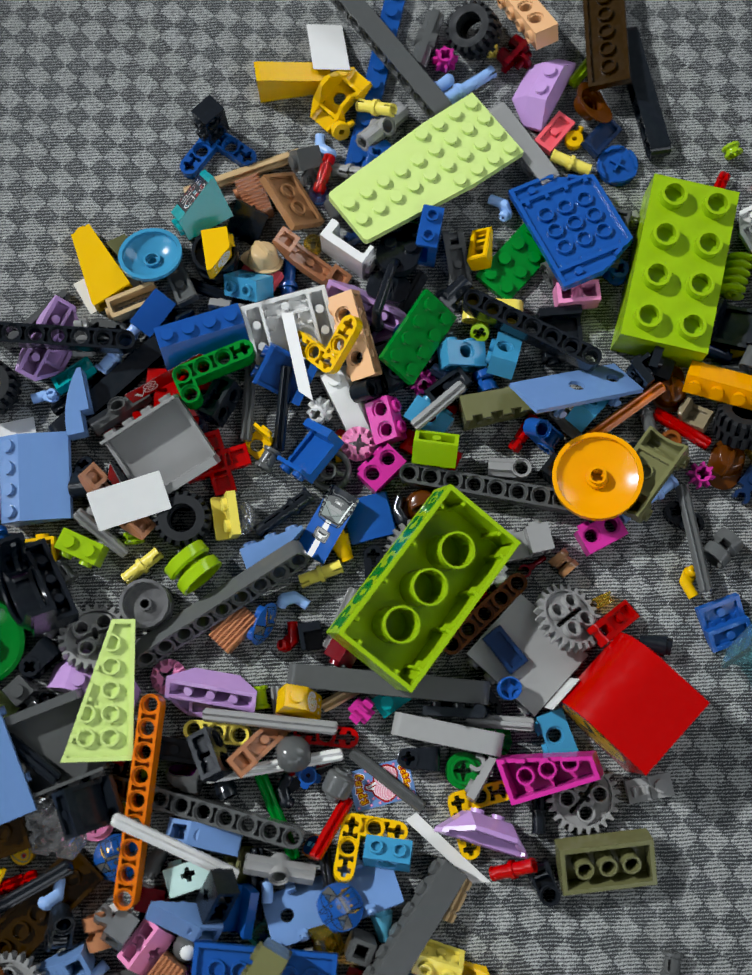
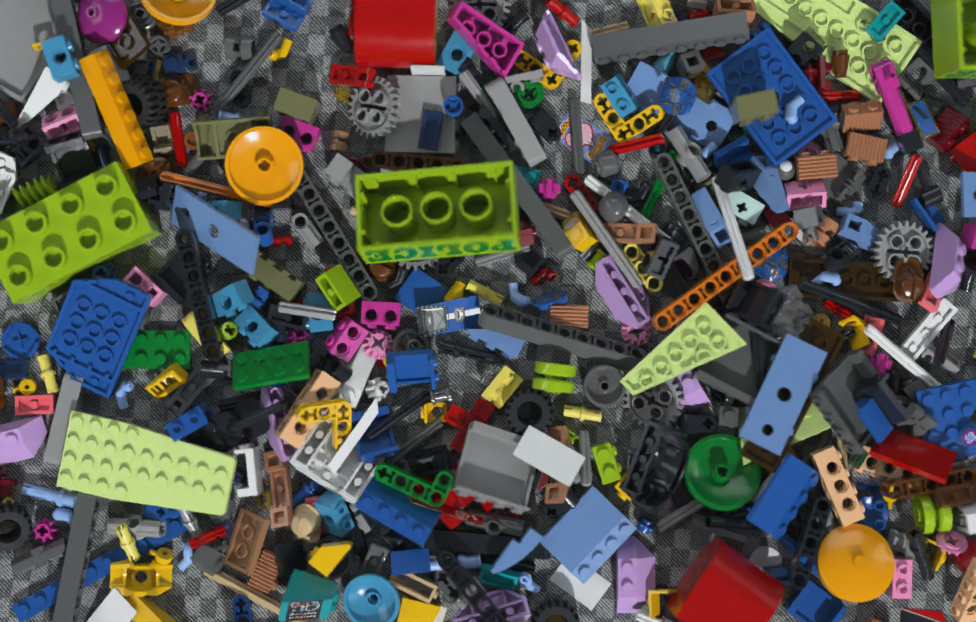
camera: 130 degrees left, 10 degrees up
(622, 552) = (297, 106): none -> olive brick

